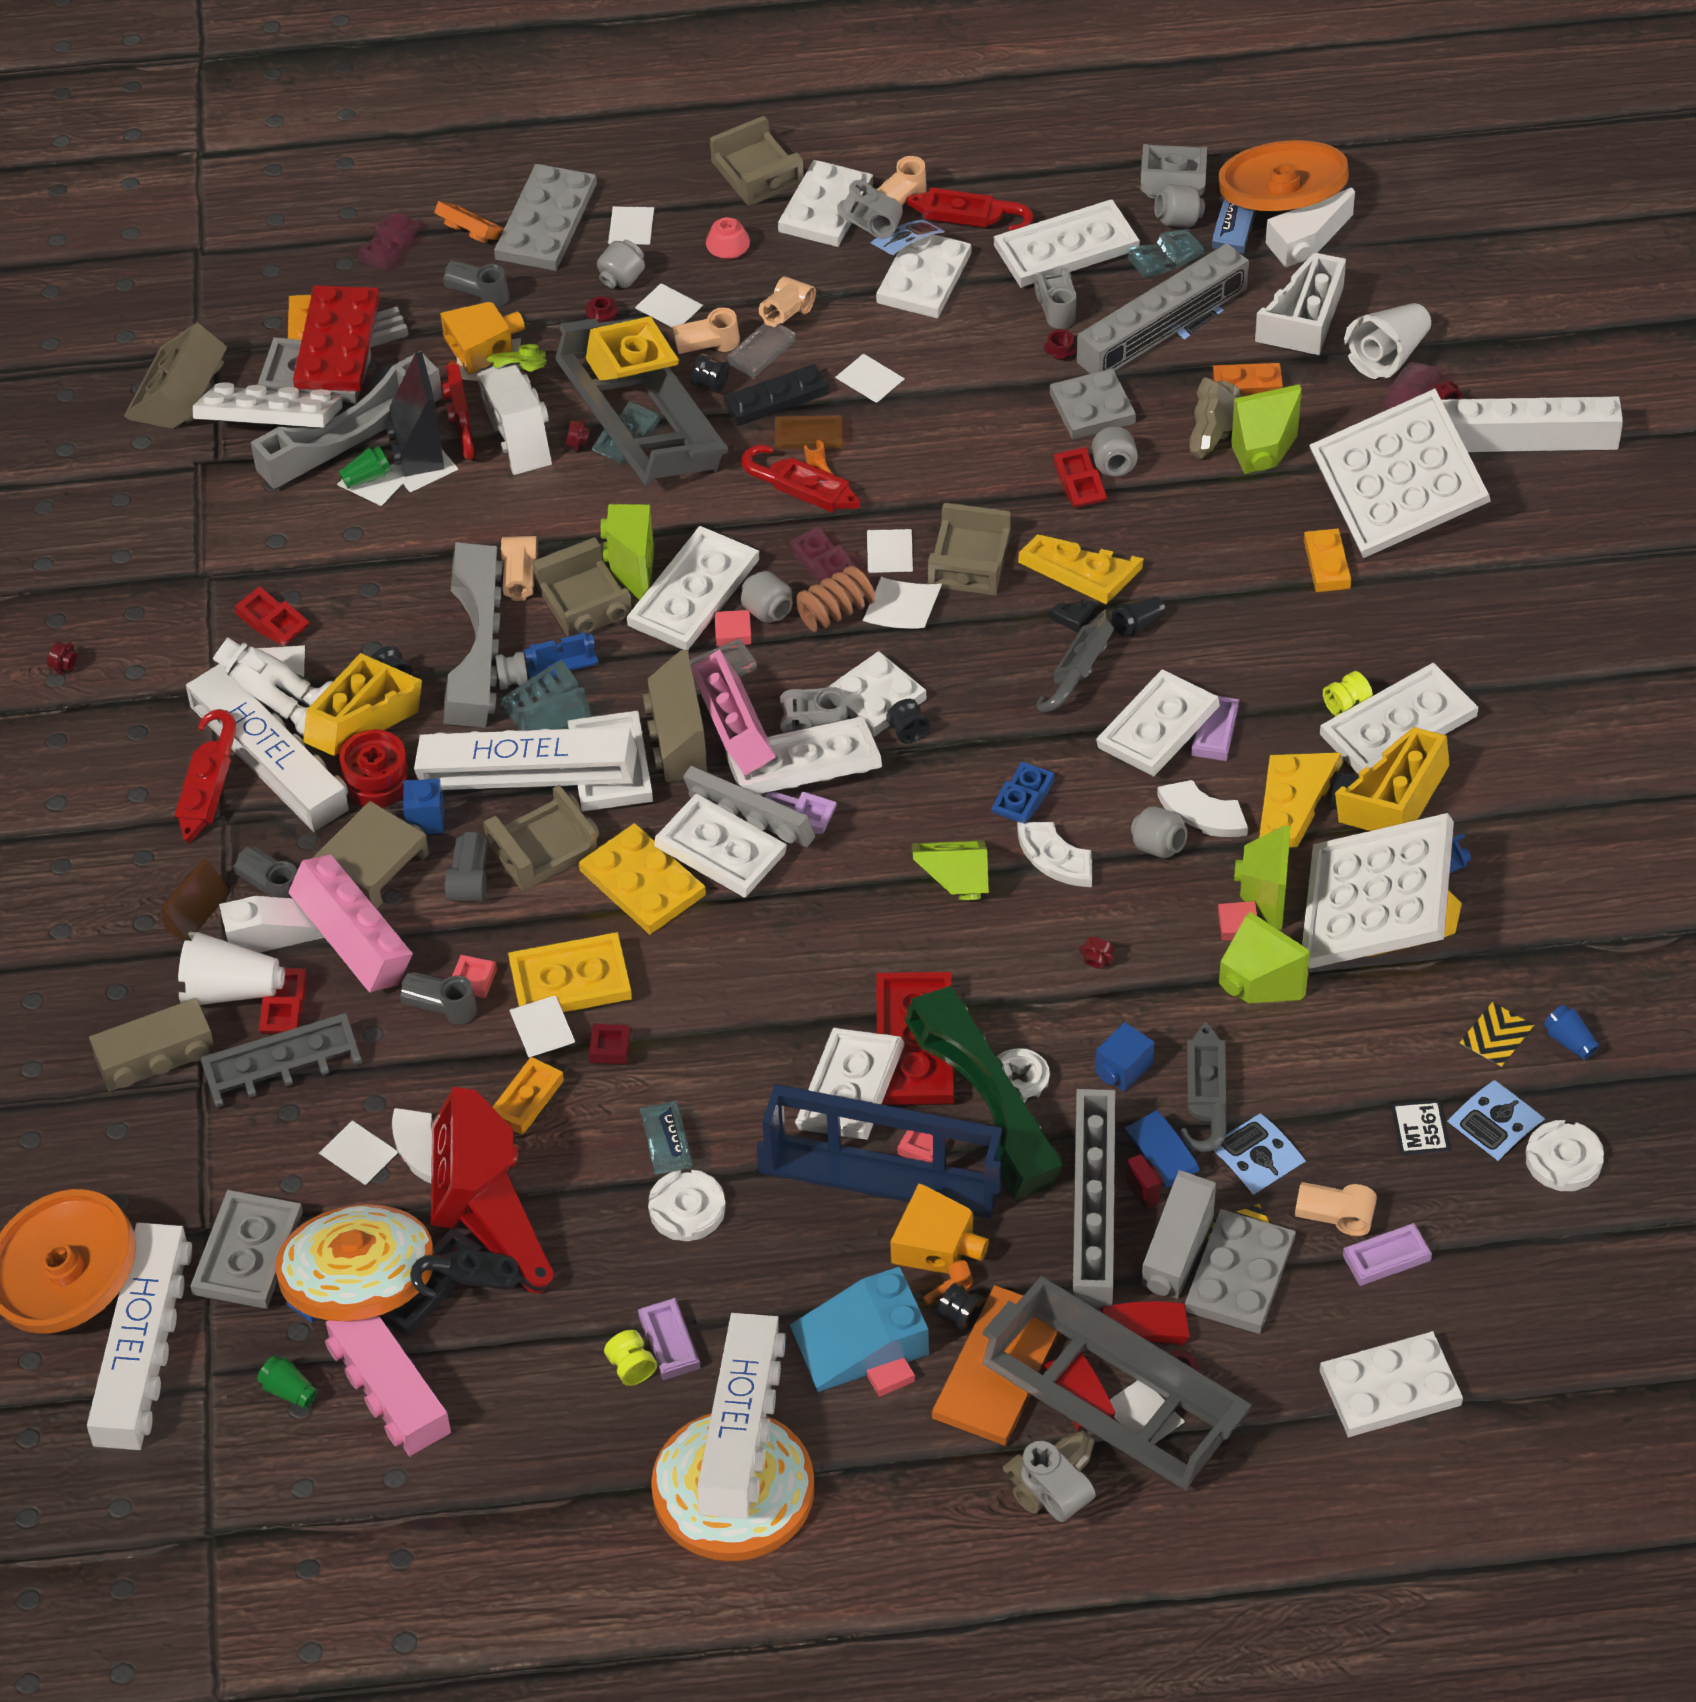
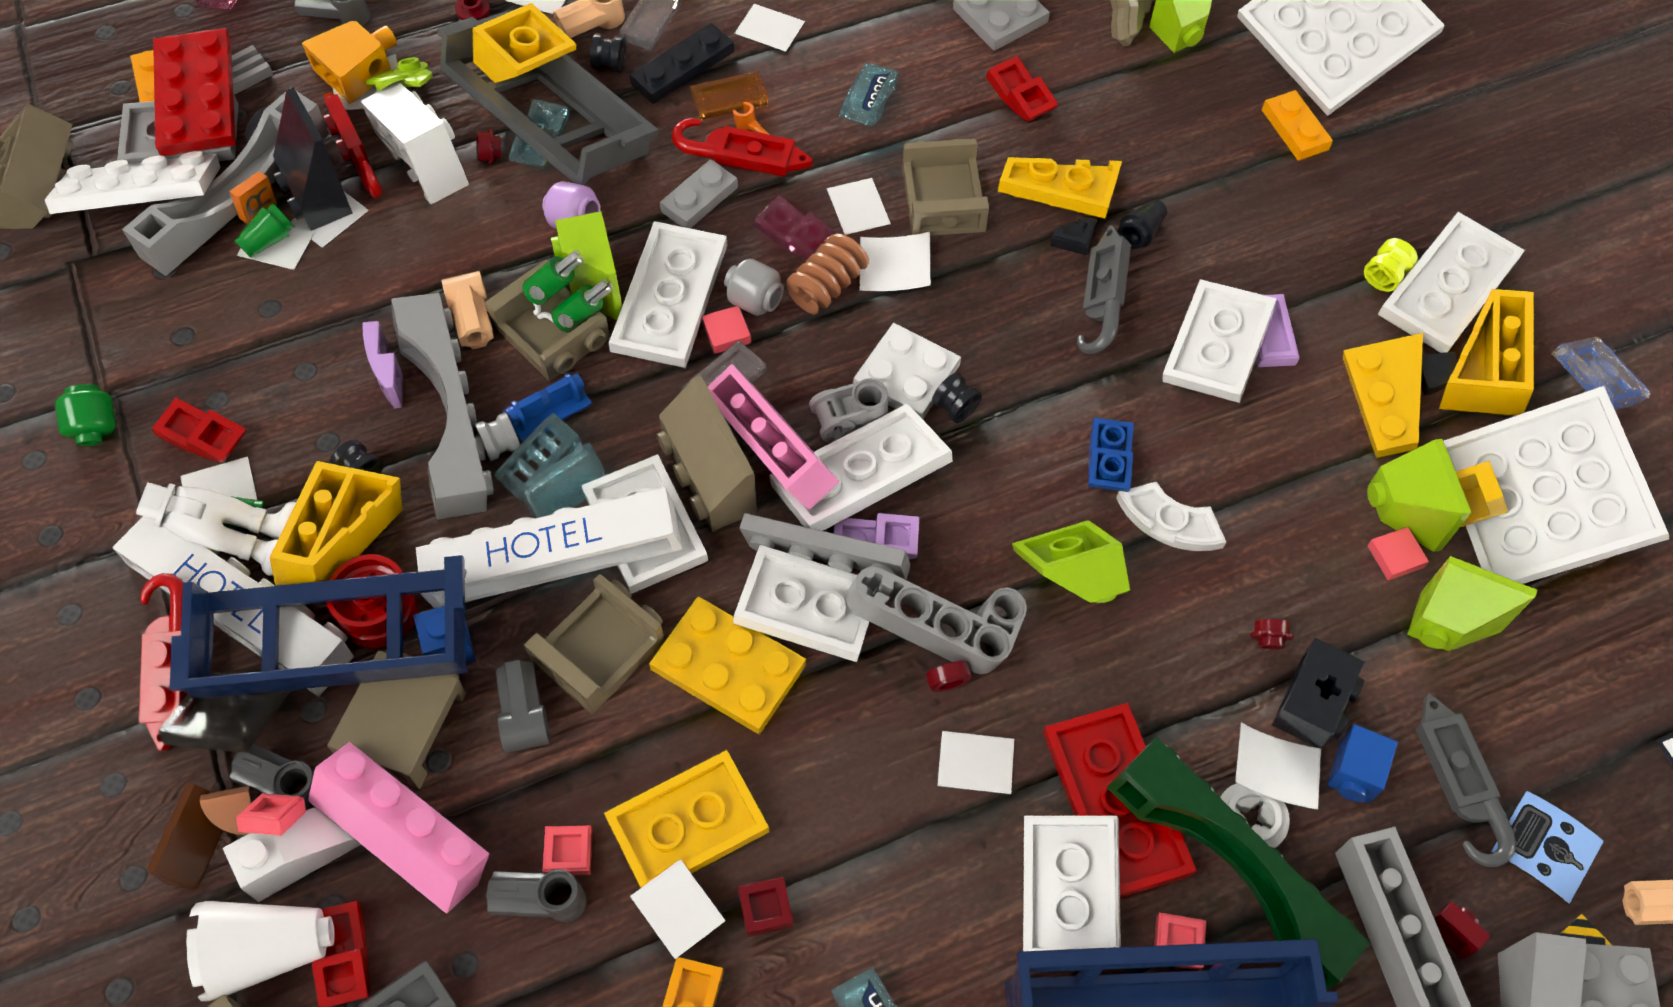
camera: 20 degrees left, 10 degrees up
(185, 584) = (85, 414): none -> green head
(228, 885) = (225, 806): none -> nougat tile
(242, 819) = (221, 722): none -> clear smoke plate
(260, 888) = (271, 814): none -> coral tile
(284, 798) = (194, 647): none -> dark blue piece
(363, 436) = (252, 195): none -> orange tile
(435, 594) = (383, 363): none -> lavender slope
(591, 553) = (553, 278): none -> green piece
(632, 491) = (567, 201): none -> lavender head
(750, 512) = (699, 194): none -> light grey plate
(777, 847) = (932, 611): none -> light grey beam
(814, 922) = (948, 676): none -> dark red tile
(815, 991) = (976, 762): none -> white sticker
(933, 455) = (869, 94): none -> clear light blue slope
(1054, 1045) = (1278, 768): none -> white sticker
(1111, 999) = (1320, 671): none -> black brick
(1114, 451) = (1047, 54): light grey head -> none
(1159, 832) = (1275, 468): light grey head -> none
(1161, 1147) = (1458, 876): blue slope -> none
(1203, 812) = (1302, 431): white tile -> none
(1317, 881) = (1481, 492): none -> yellow panel
(1490, 820) = (1598, 366): none -> clear tile

